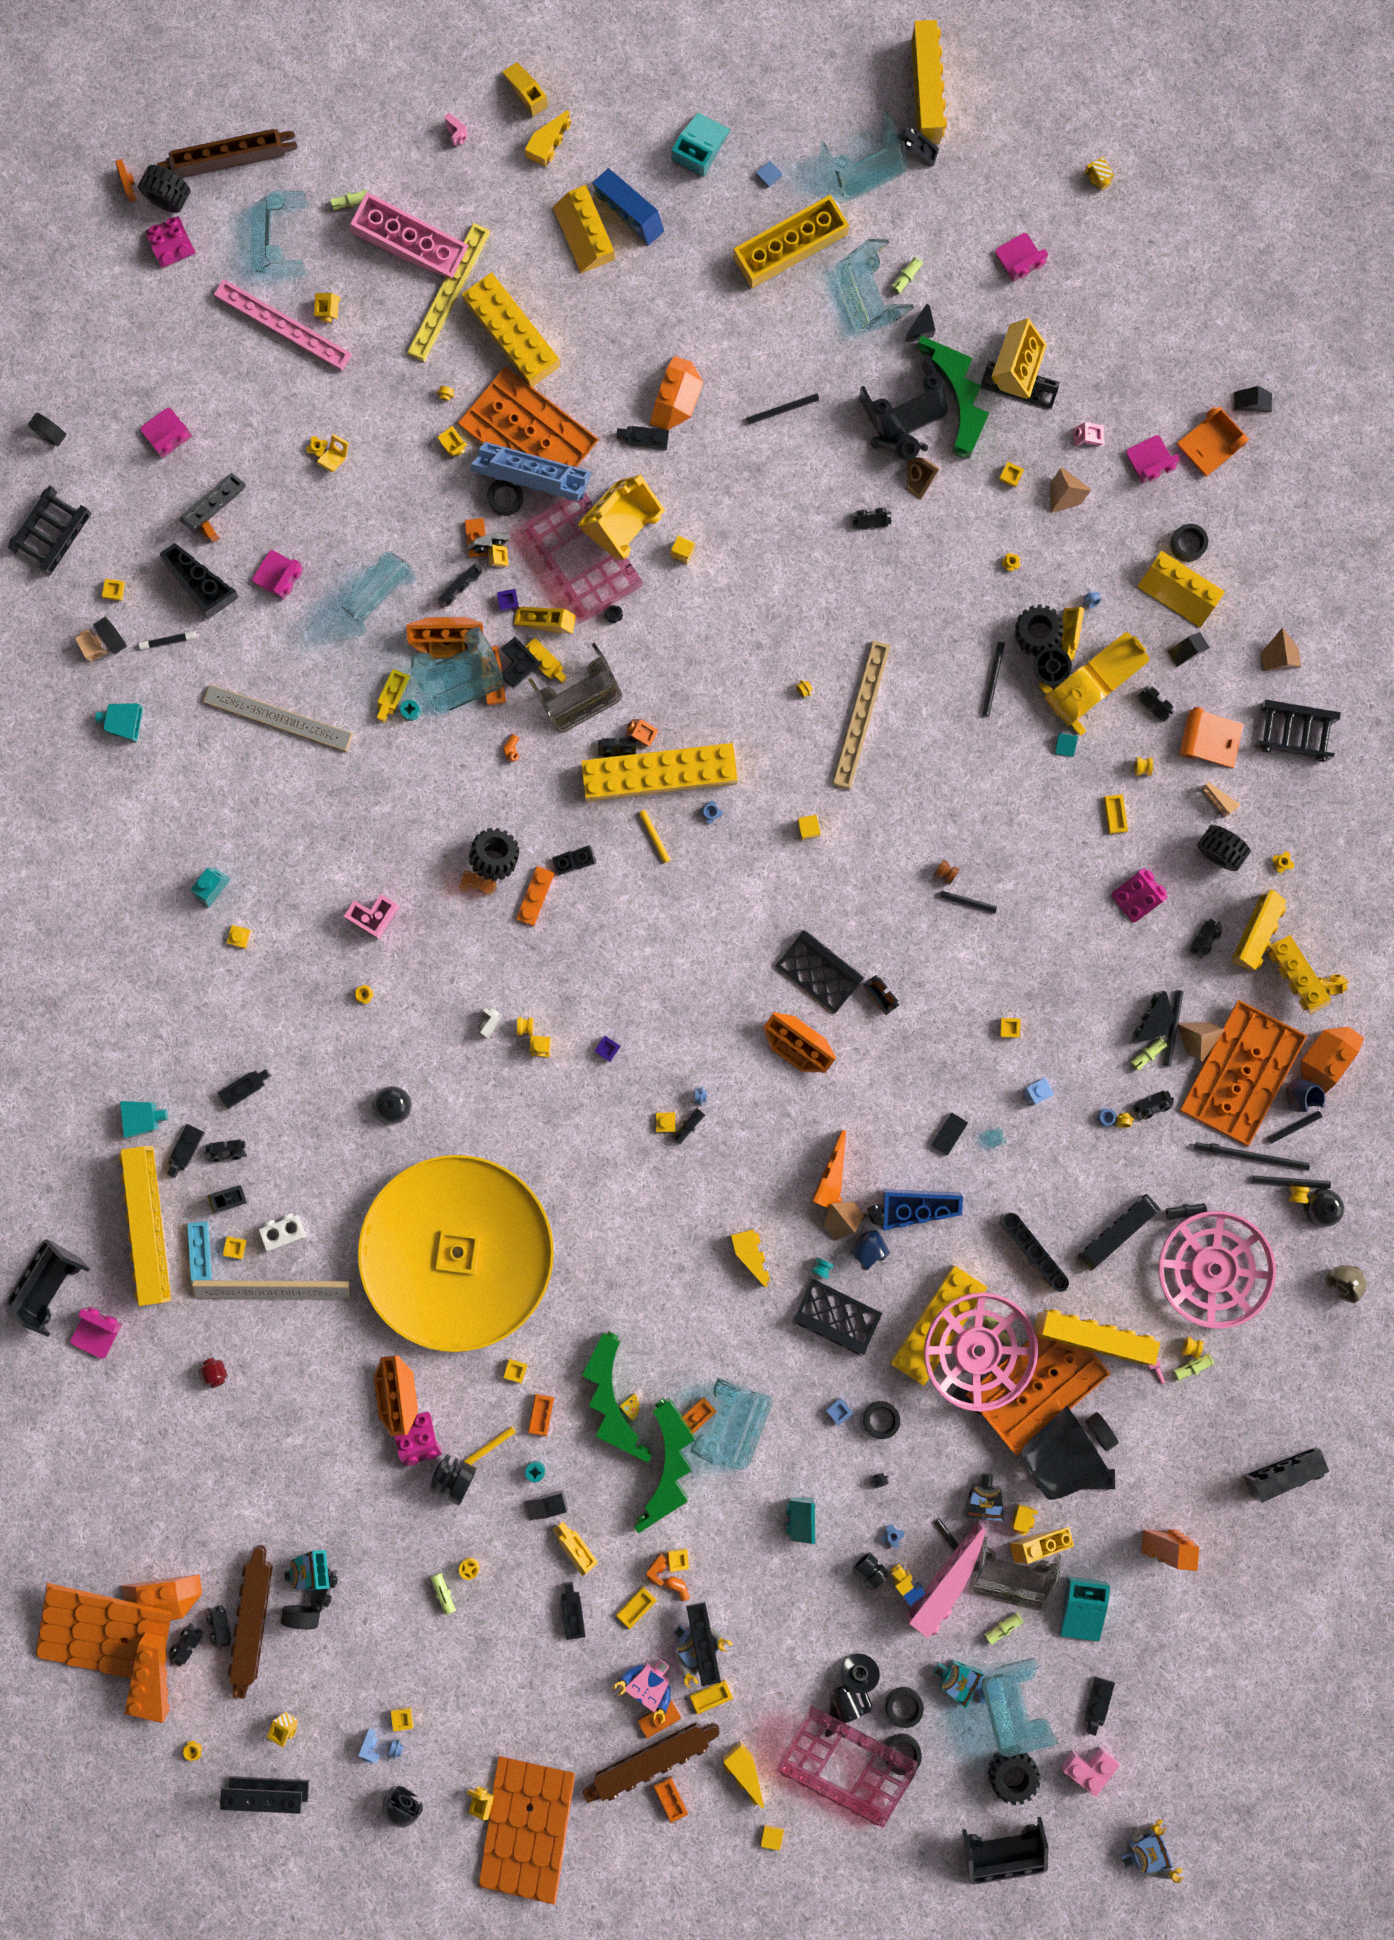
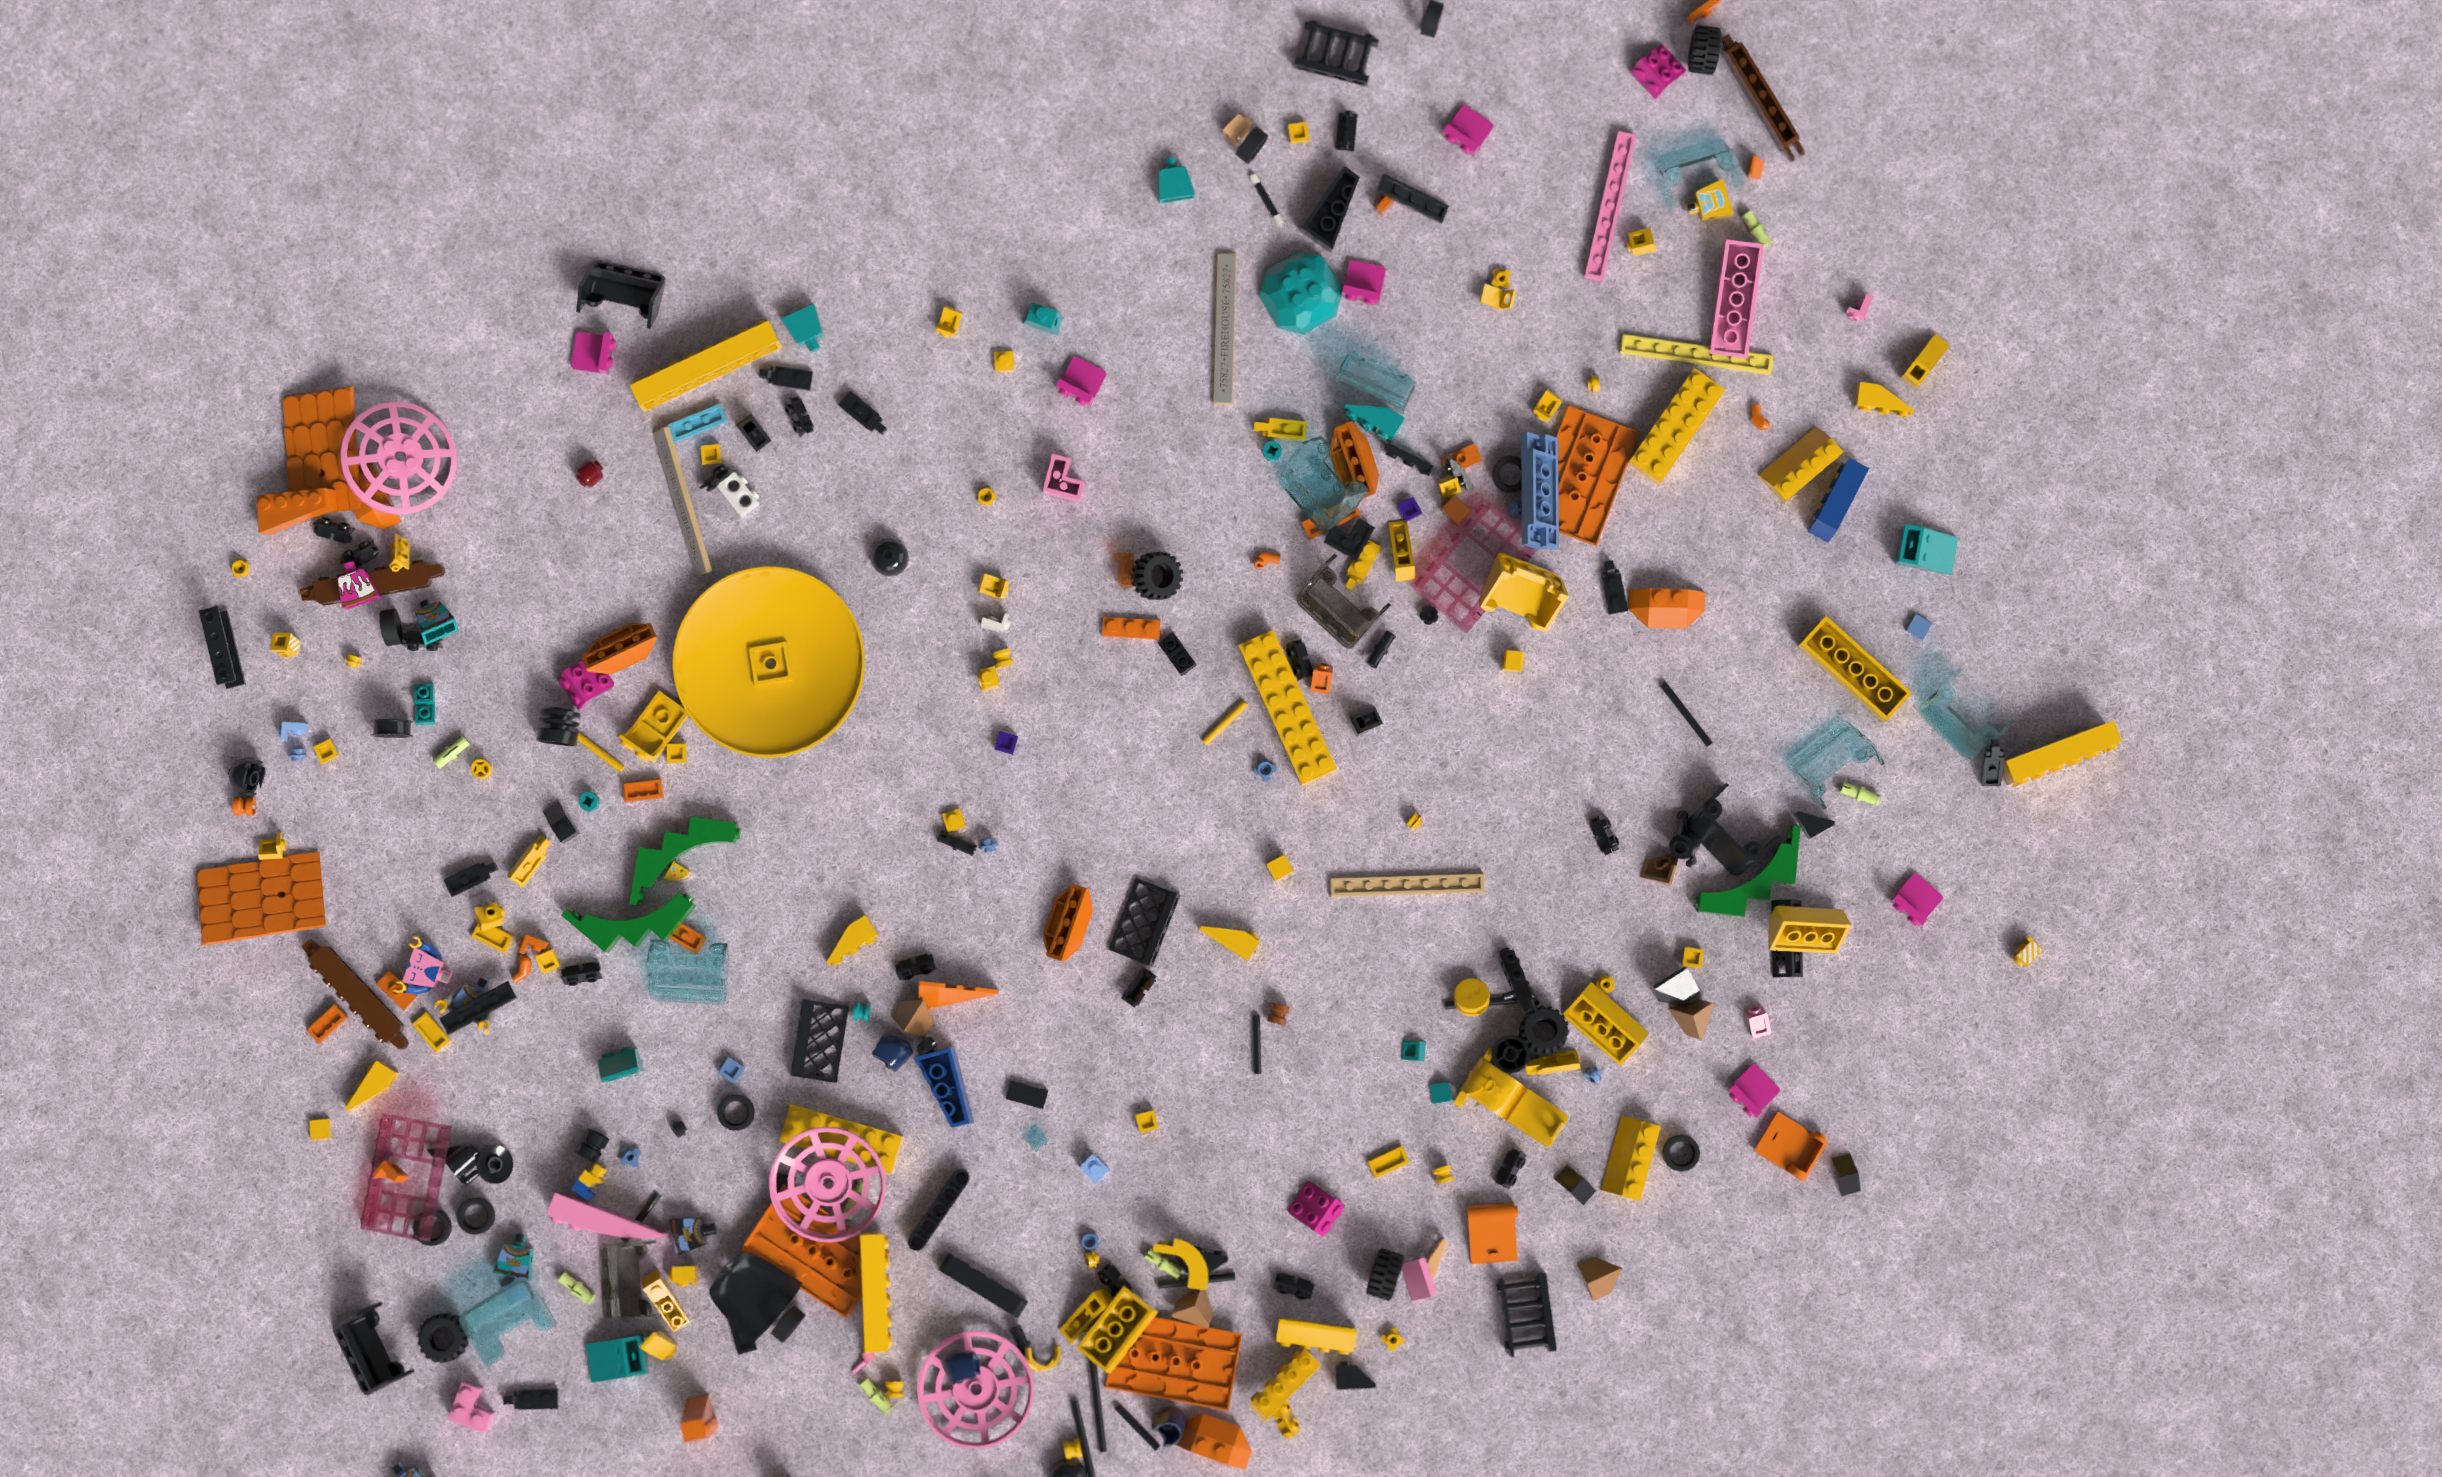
camera: 75 degrees right, 0 degrees up
(127, 545) = (1346, 131): none -> black hinge
(139, 1569) = (393, 468): none -> bright pink dish
(182, 976) = (949, 322): none -> yellow bracket
(230, 1586) = (400, 553): none -> yellow hinge
(249, 1640) = (356, 587): none -> torso
(256, 1245) = (719, 474): none -> black plate
(267, 636) = (1300, 292): none -> teal rock
(283, 869) = (1081, 381): none -> dark pink bracket
(291, 183) = (1755, 168): none -> orange slope
(311, 231) = (1711, 202): none -> yellow torso
(321, 1664) = (353, 660): none -> yellow plate
(387, 1605) = (424, 704): none -> teal slope
(400, 1646) = (391, 728): none -> black wheel
(414, 599) = (1377, 419): none -> teal slope
(429, 1819) = (244, 806): none -> orange wheel
(453, 1014) = (993, 586): none -> yellow bracket
(484, 1385) = (654, 728): none -> yellow bracket
(522, 557) = (1455, 510): none -> dark orange brick
(528, 256) = (1758, 420): none -> orange arm
(540, 501) = (1515, 509): none -> medium blue plate
(621, 1609) = (488, 921): none -> yellow brick
(632, 668) = (1381, 649): none -> black pin
(695, 704) = (1365, 721): none -> black slope
(699, 1539) = (572, 975): none -> black hinge
(796, 1193) = (907, 970): none -> black hinge
(835, 1779) = (390, 1170): none -> orange bracket
(866, 888) = (1235, 940): none -> yellow slope
(986, 639) = (1519, 985): none -> black piece
(986, 686) = (1471, 997): none -> yellow head
(1018, 758) = (1413, 1050): none -> teal slope
(1038, 494) = (1678, 989): none -> slope
(1049, 572) = (1605, 1024): none -> yellow slope
(1085, 1563) = (660, 1345): none -> yellow slope
(1164, 1021) = (1197, 1266): none -> yellow arch
(1177, 1140) = (1086, 1315): none -> yellow slope
(1194, 1276) = (960, 1365): none -> dark blue piece
(1201, 1116) = (1117, 1329): none -> yellow slope
(1215, 1194) = (1037, 1367): none -> yellow helmet
(1237, 817) = (1418, 1279): none -> bright pink tile
(1308, 911) = (1351, 1377): none -> black slope

